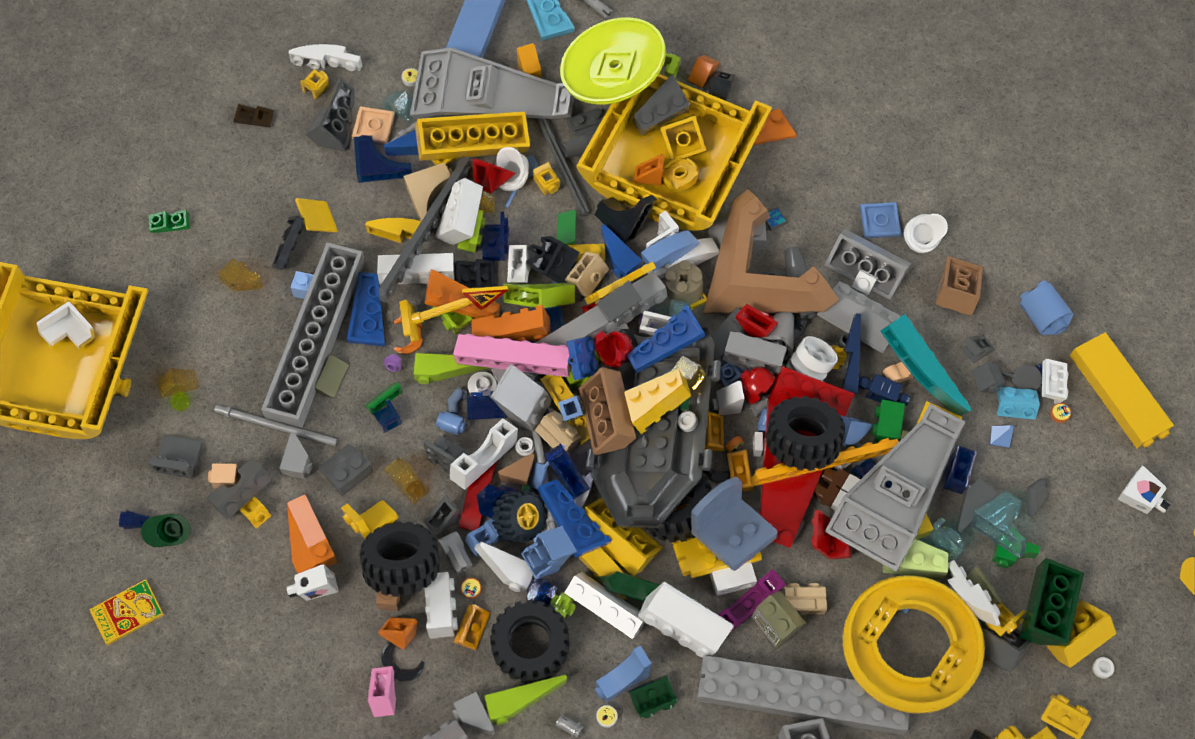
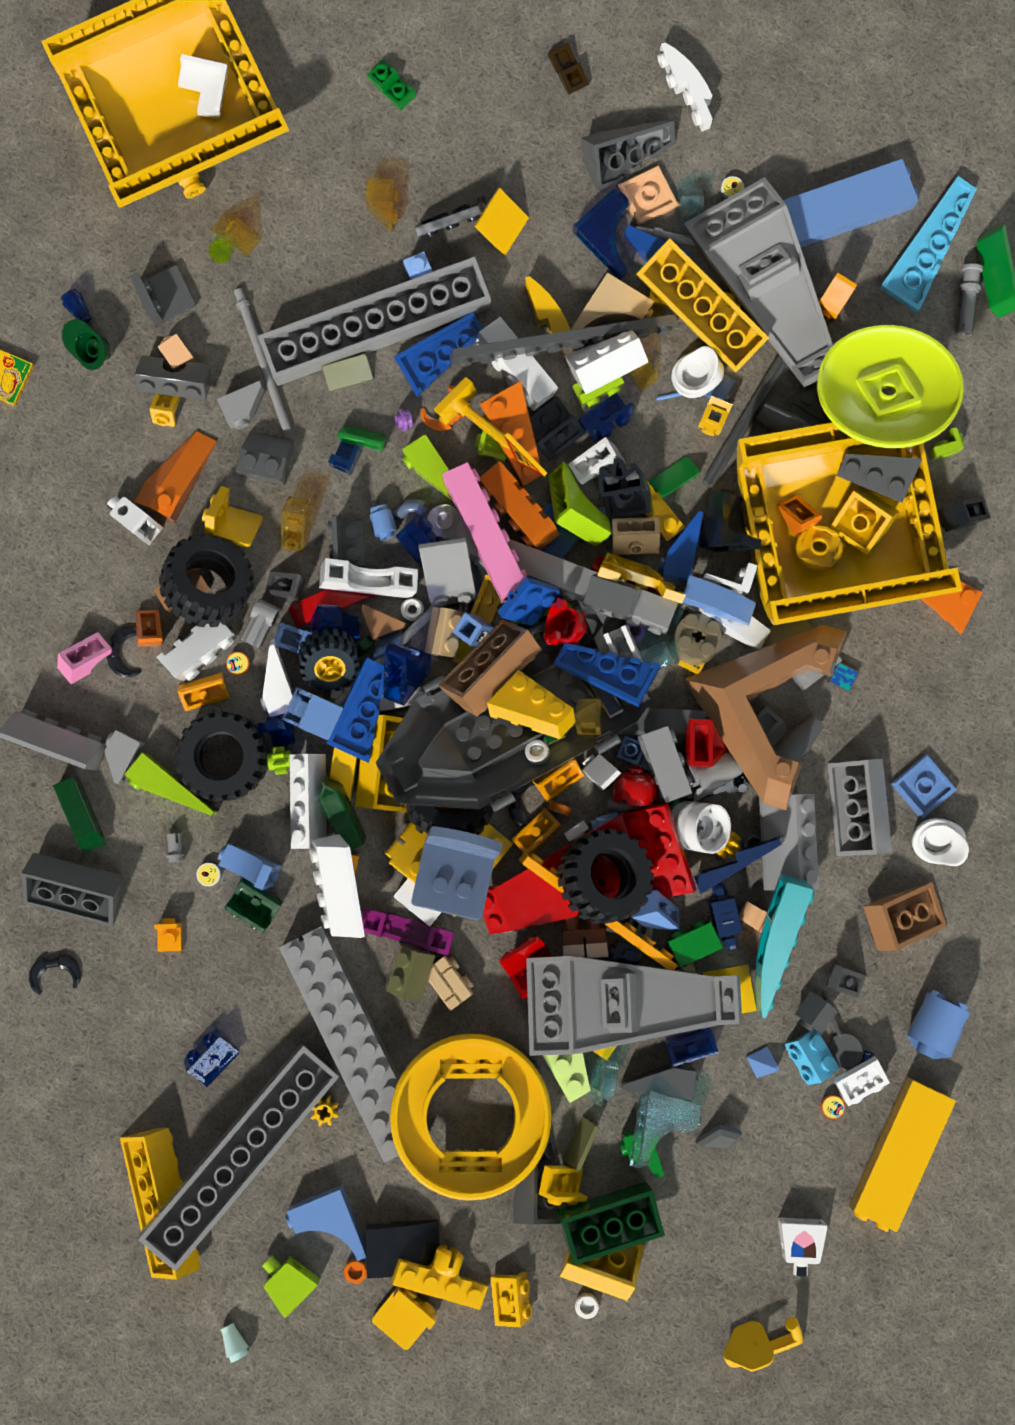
camera: 55 degrees right, 20 degrees up
(316, 82) = (650, 99): yellow window -> none
(490, 175) = (673, 356): red slope -> none
(702, 70) = (969, 481): orange slope -> none
(864, 282) = (835, 818): white plate -> none
(973, 595) = (559, 1142): white slope -> none

